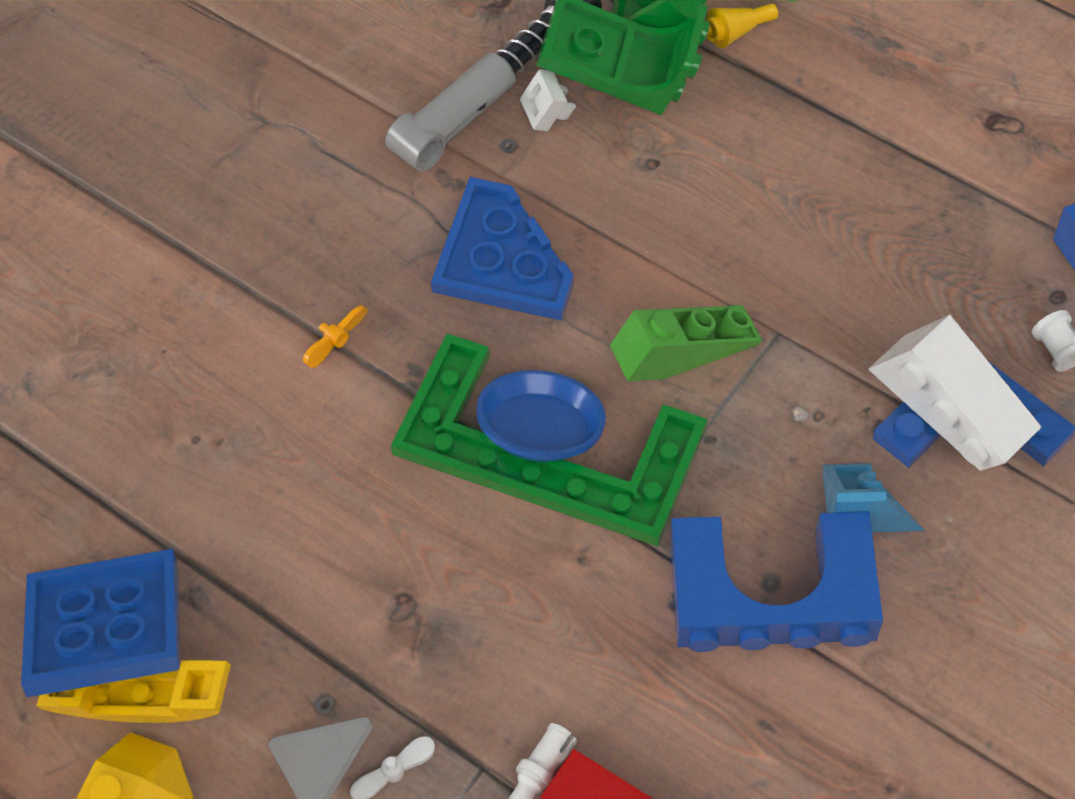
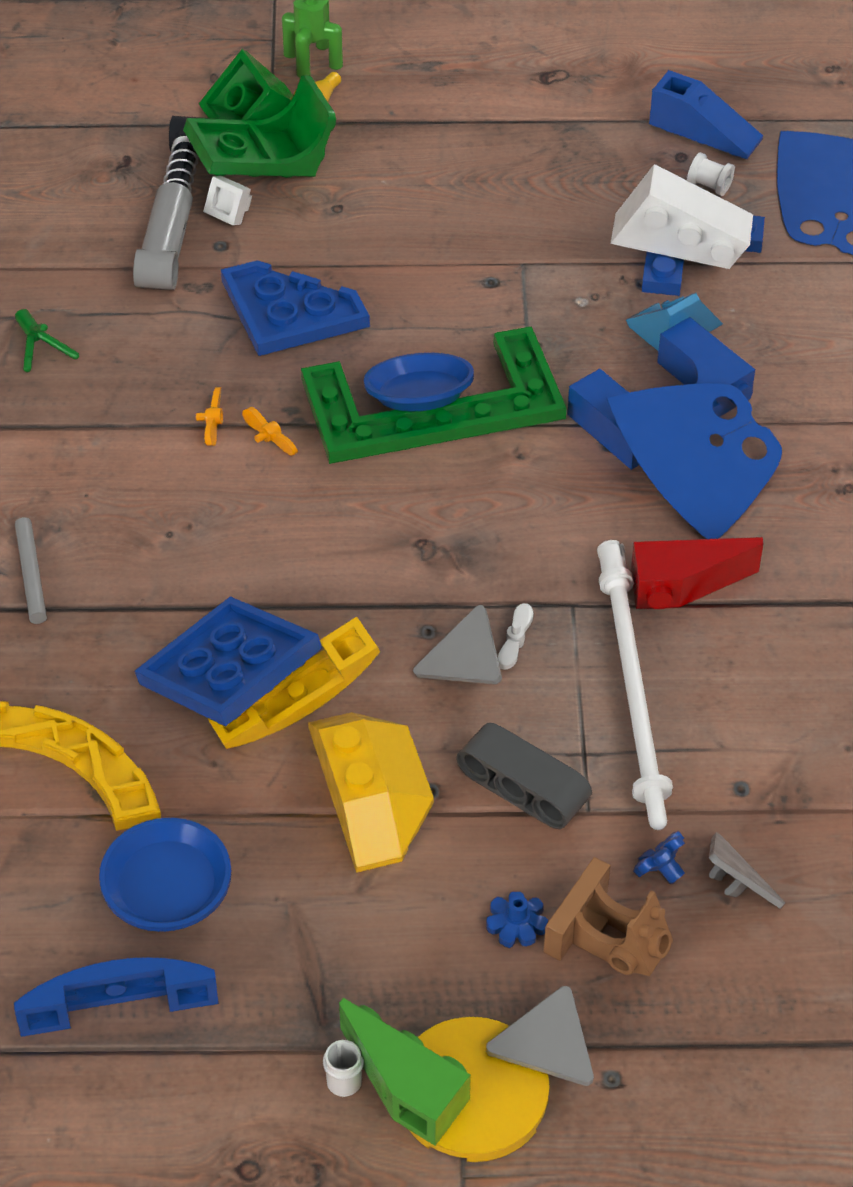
camera: 40 degrees left, 10 degrees down
(46, 404) = (30, 570): none -> light grey bar
(258, 150) = (35, 333): none -> green plant
(369, 384) = (268, 431): none -> light orange piece
(675, 340) = (466, 293): bright green slope -> none
(715, 690) = (671, 442): none -> blue piece

